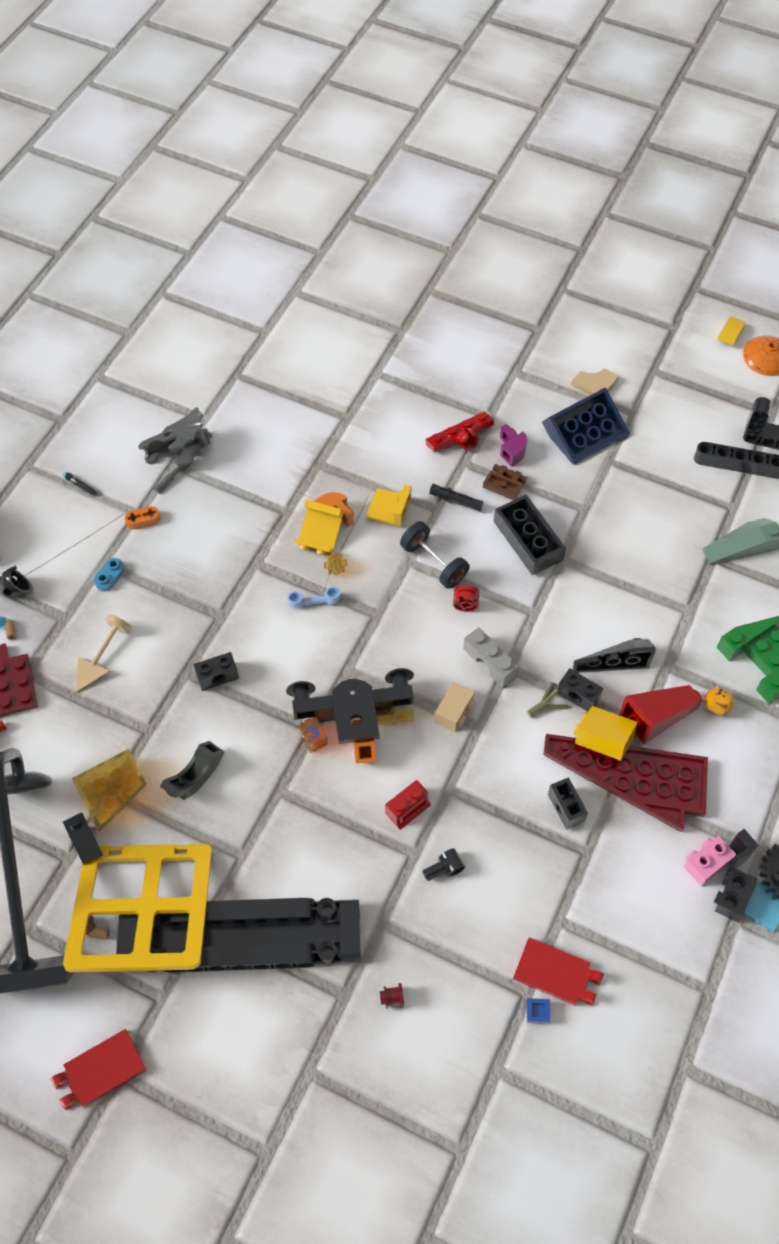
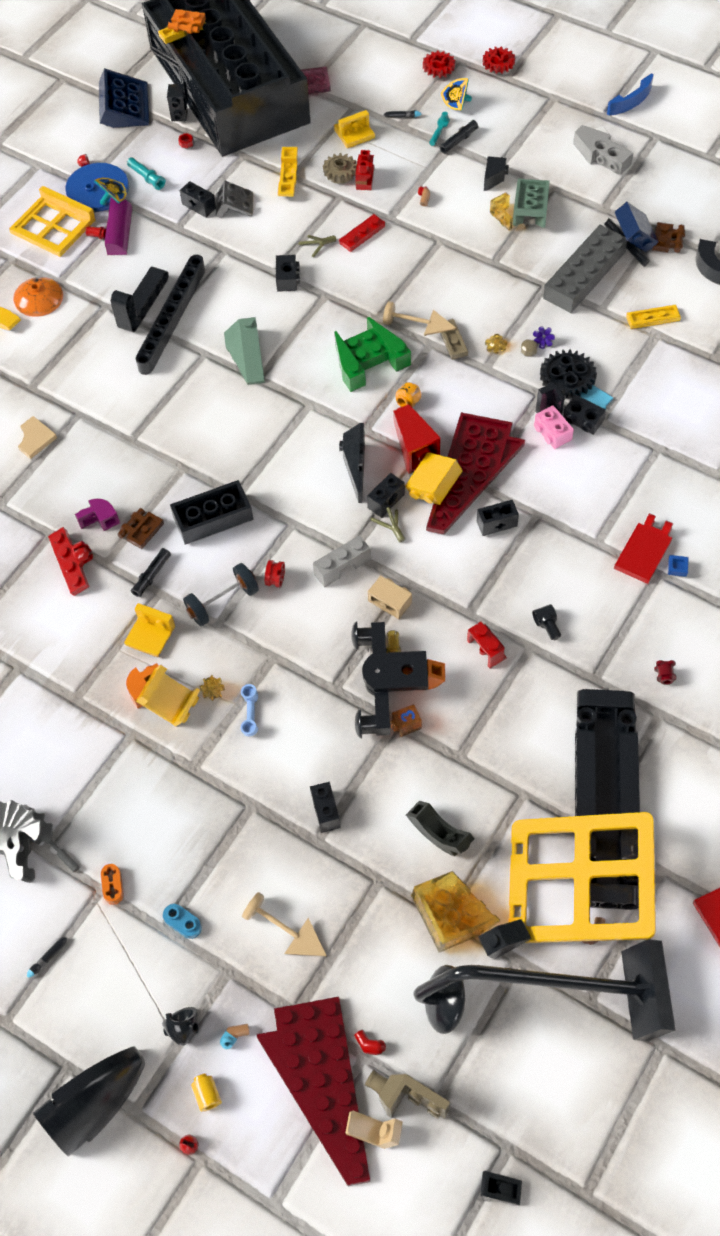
camera: 80 degrees left, 0 degrees up
(586, 426) = (88, 450): dark blue slope -> none

